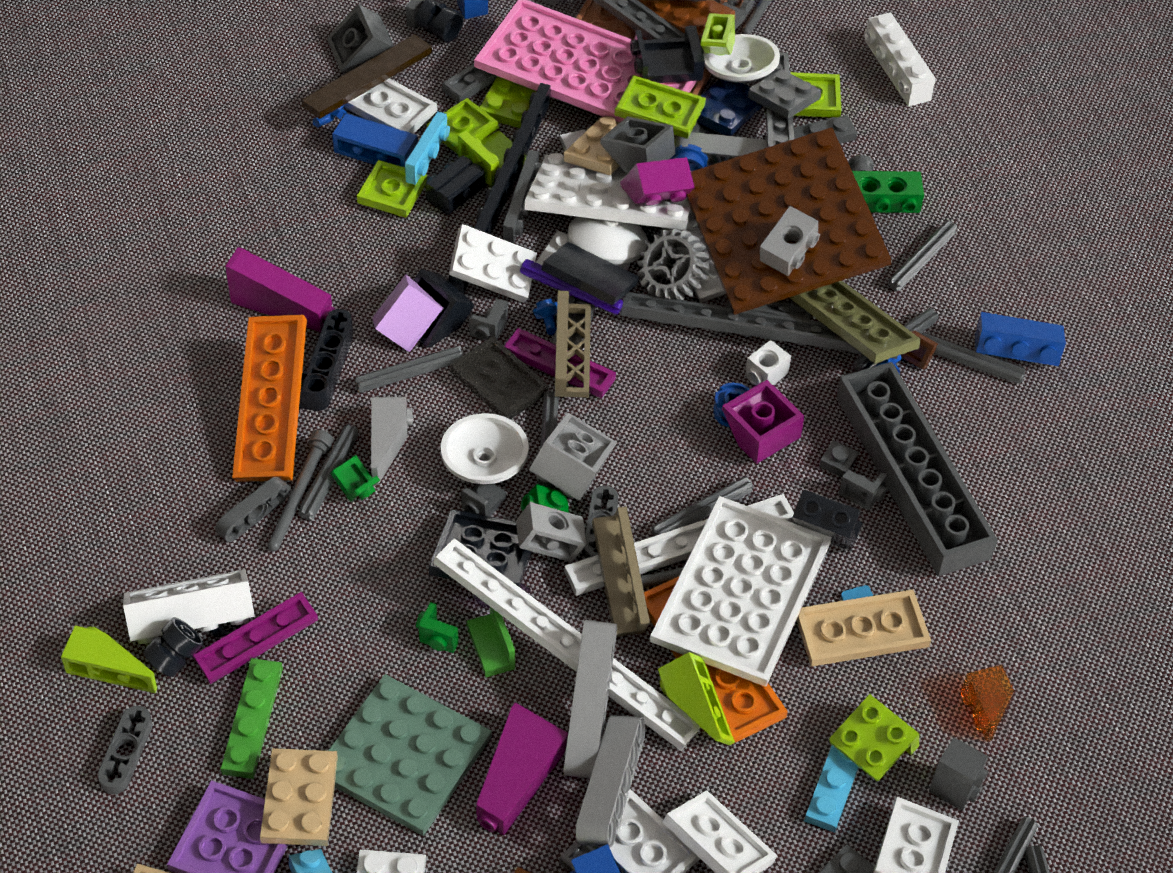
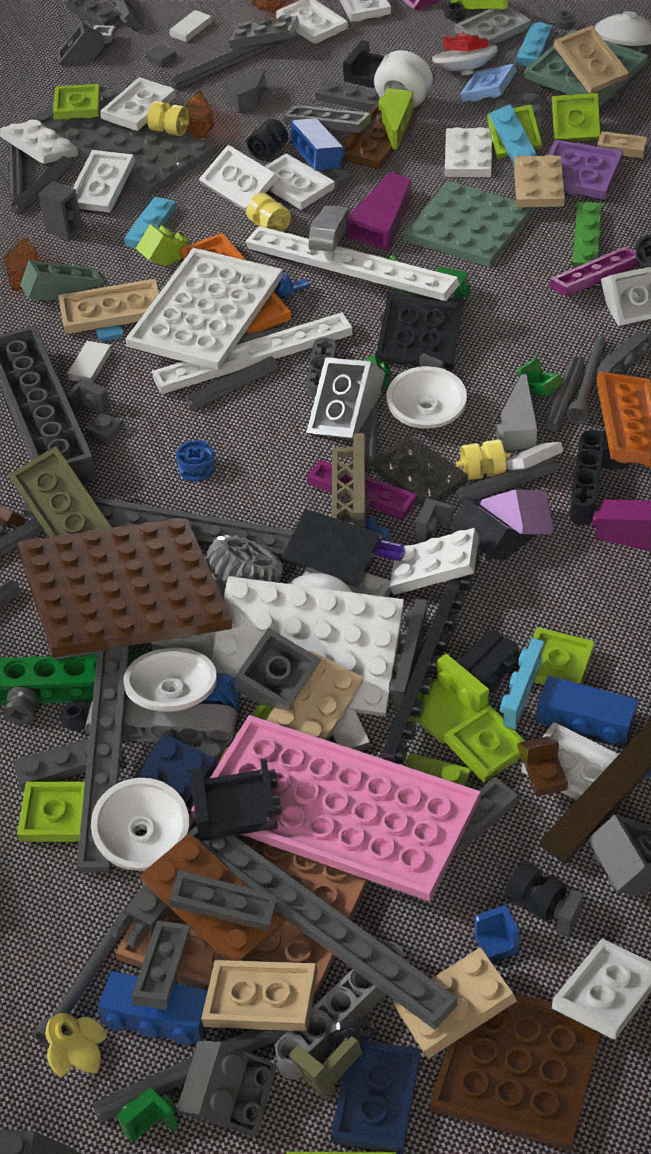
camera: 175 degrees left, 5 degrees down
(379, 381) = (534, 455): none -> white tile
(421, 95) = (543, 765): none -> reddish brown slope
(432, 379) = (483, 459): none -> light yellow wheel
(551, 532) = (364, 336): light grey brick -> none
(610, 781) = (314, 193): light grey beam -> none
(621, 573) = (305, 314): dark tan fence -> none
(646, 651) = (286, 288): none -> blue plate
(659, 181) = (256, 606): magenta slope -> none
(660, 104) = (246, 736): lime tile -> none
(678, 770) = (268, 213): none -> light yellow wheel
(692, 690) = (248, 241): lime slope -> none
(719, 34) = (168, 806): lime slope -> none
(726, 132) = (170, 679): none -> white dish
(763, 421) = (167, 428): magenta slope -> none
(768, 364) = (159, 490): white brick -> none
(784, 93) = (93, 766): dark grey plate -> none
(791, 227) = (122, 537): light grey brick -> none
(806, 720) = (162, 245): none -> lime slope
(828, 518) = (128, 347): black panel -> none
(873, 550) = (89, 361): none -> white tile
(874, 738) = (107, 234): lime bracket -> none
(933, 670) = (49, 280): none -> sand green slope

